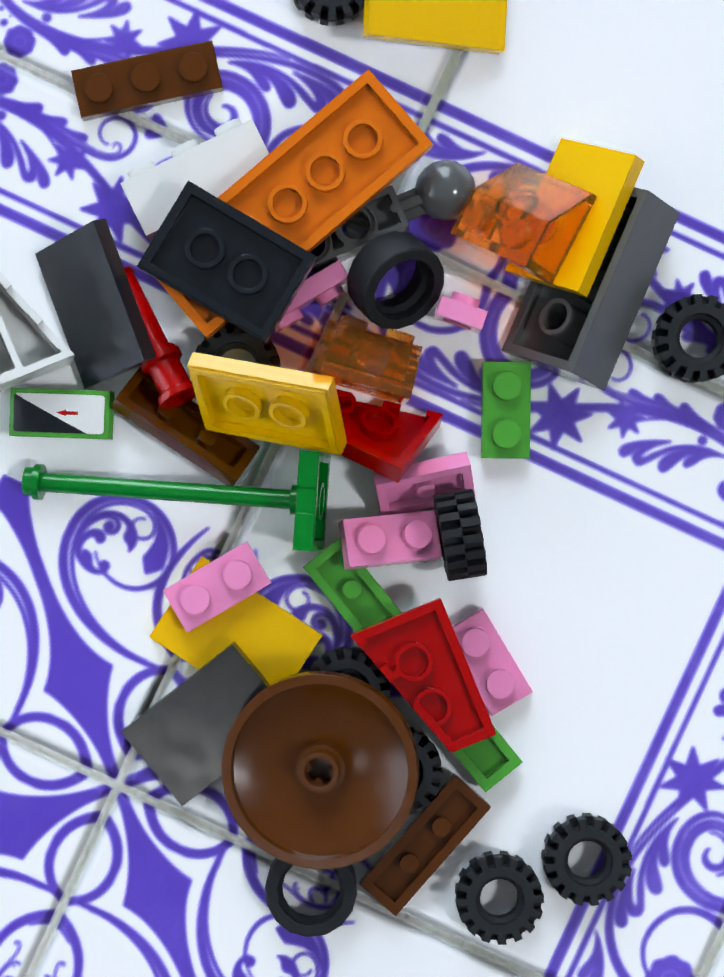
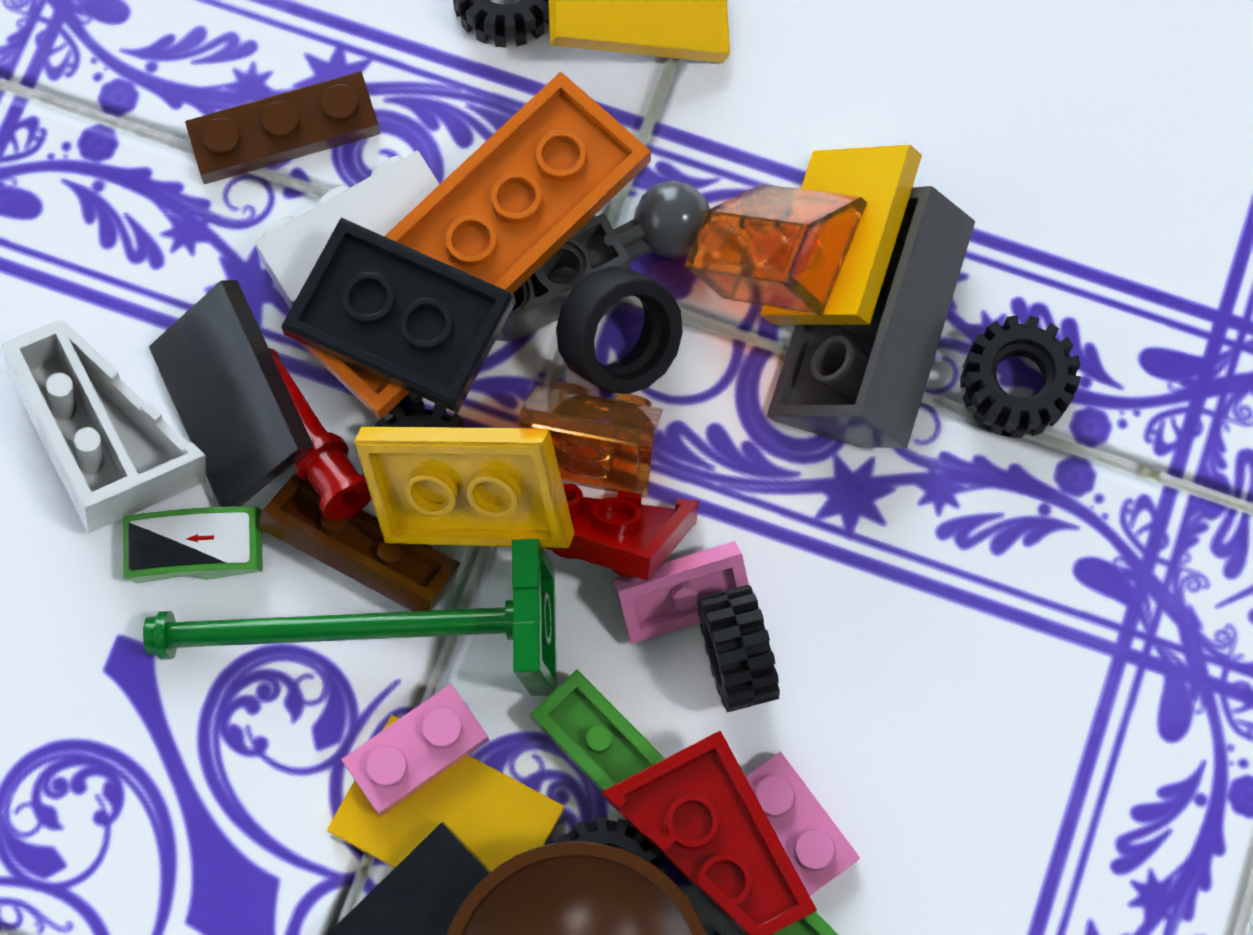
camera: 10 degrees left, 15 degrees down
(321, 287) = (522, 352): bright pink plate -> none
(389, 540) = (643, 668): bright pink plate -> none
(461, 311) = (708, 369): bright pink plate -> none
(505, 410) = (780, 491): bright green plate -> none

